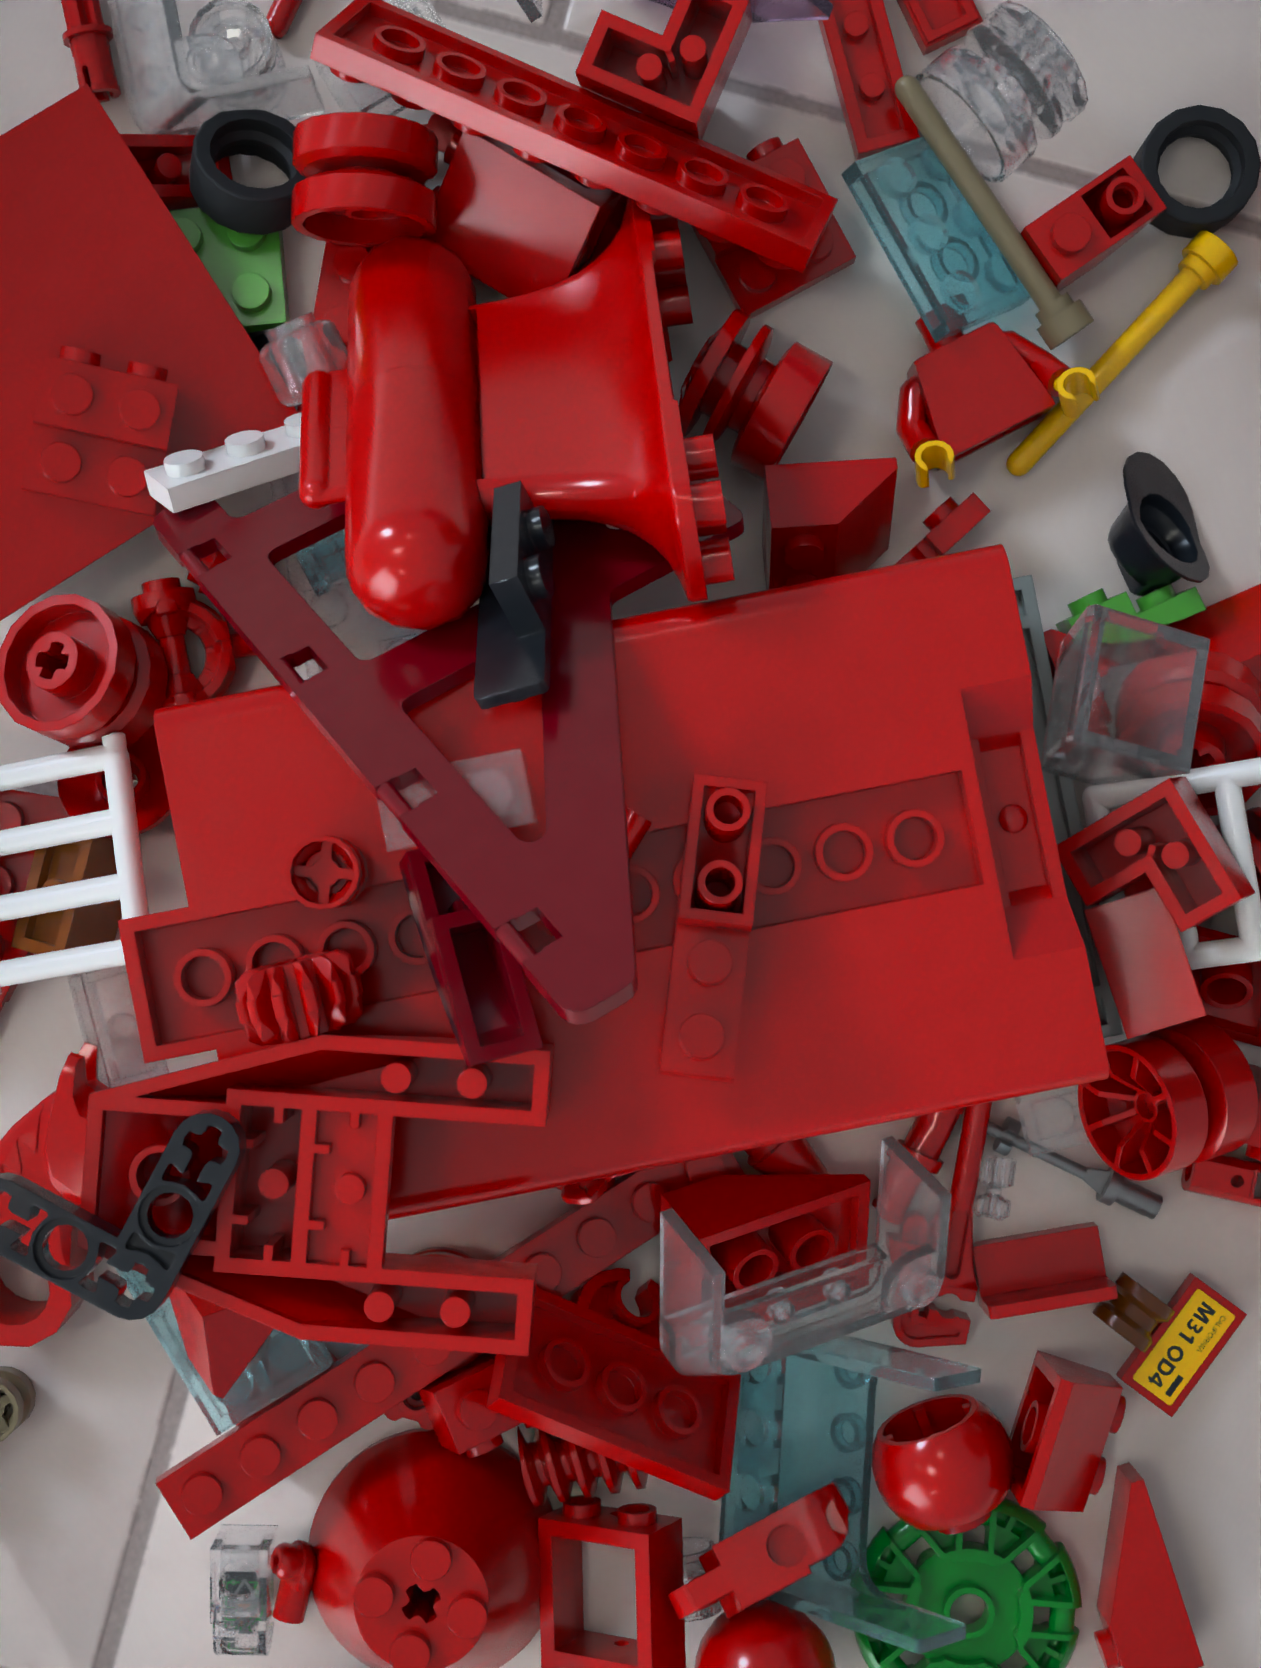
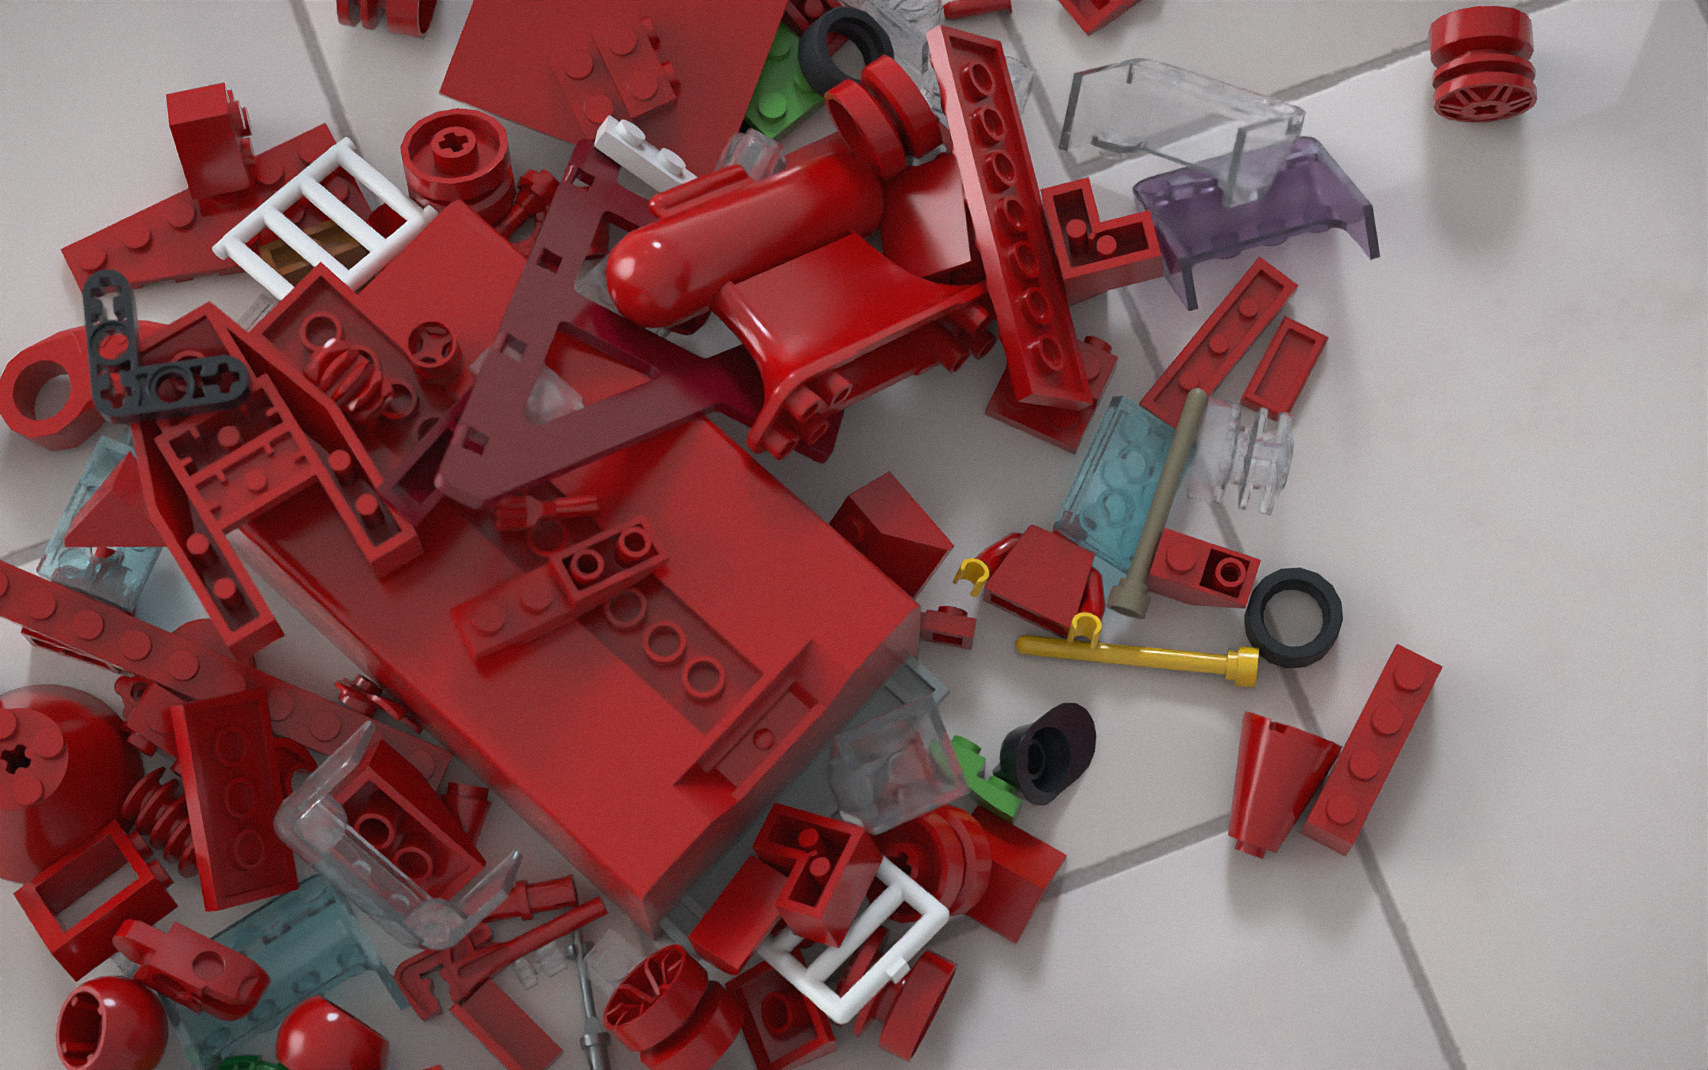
camera: 55 degrees right, 15 degrees down
(515, 602) = (682, 339): black bracket -> none
(751, 393) = (934, 439): red wheel -> none

